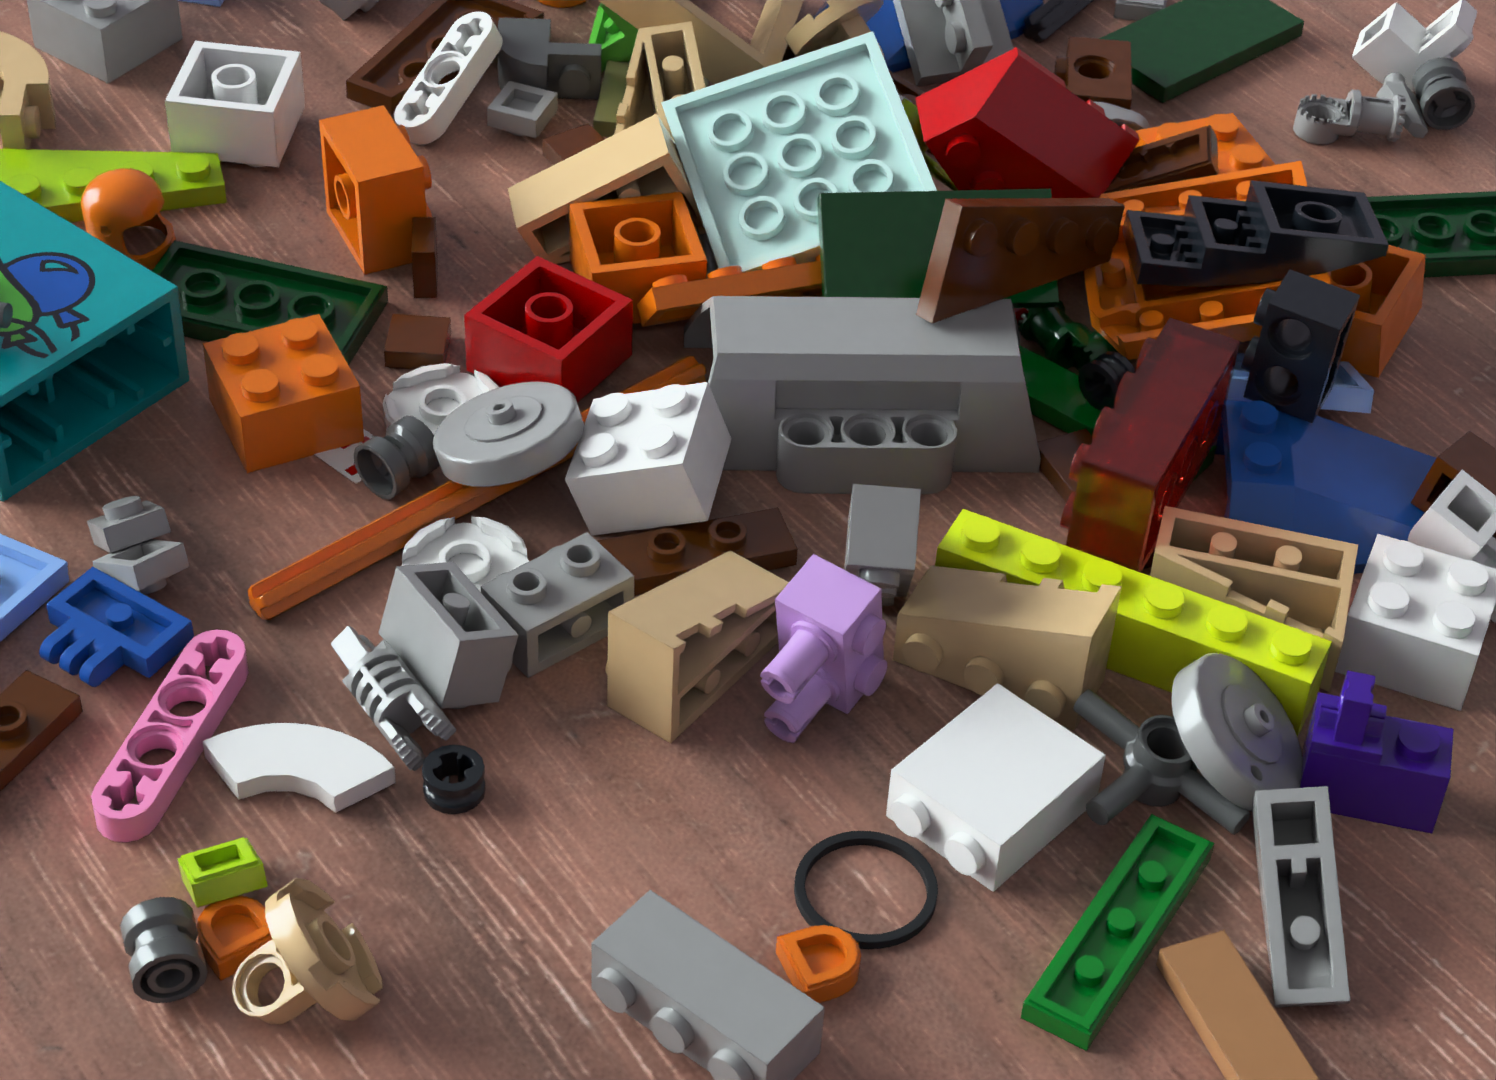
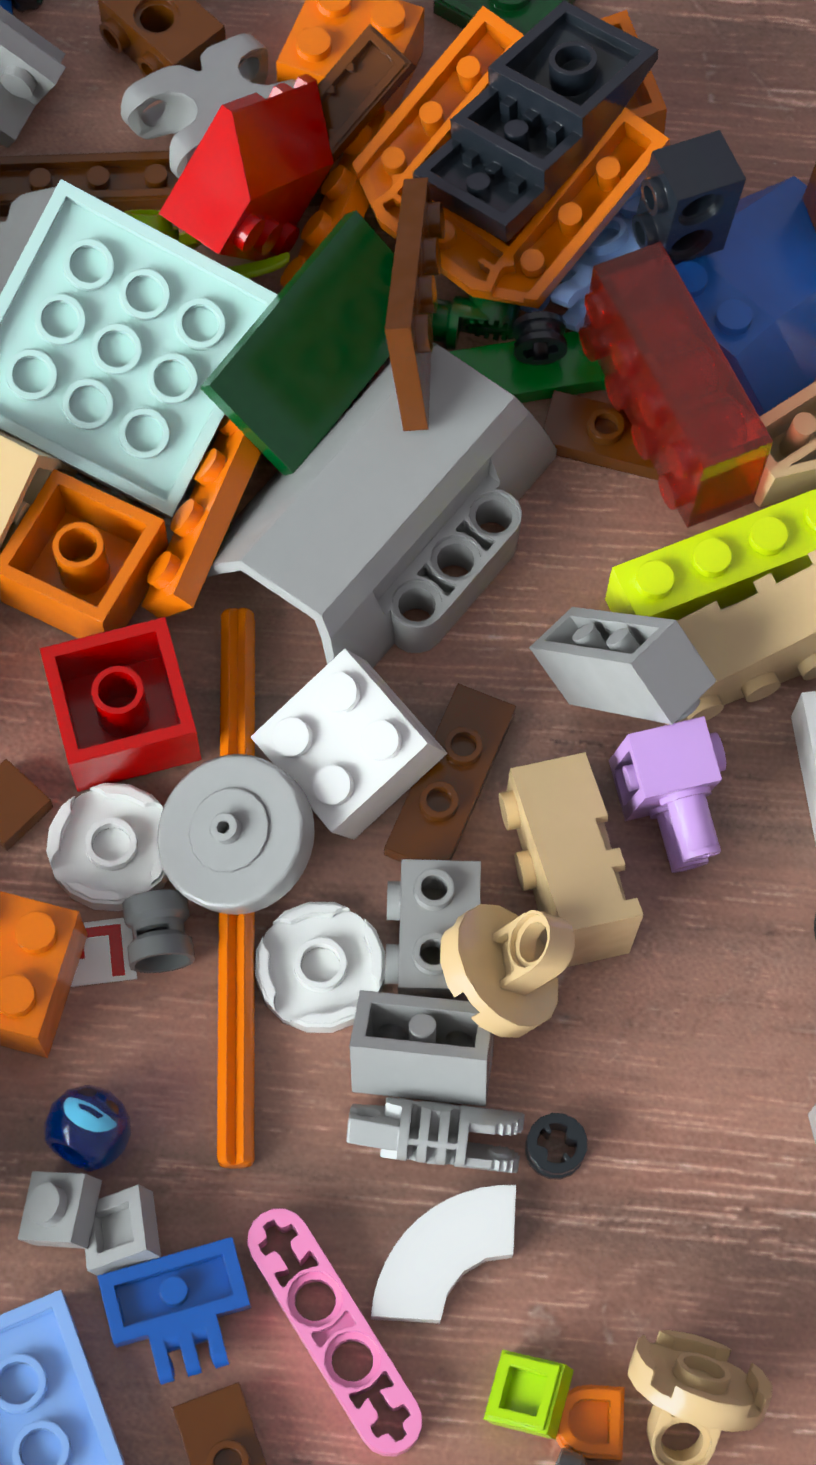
camera: 50 degrees left, 25 degrees up
(206, 500) = (88, 1127): none -> clear blue piece
(550, 619) = (506, 966): none -> tan tile

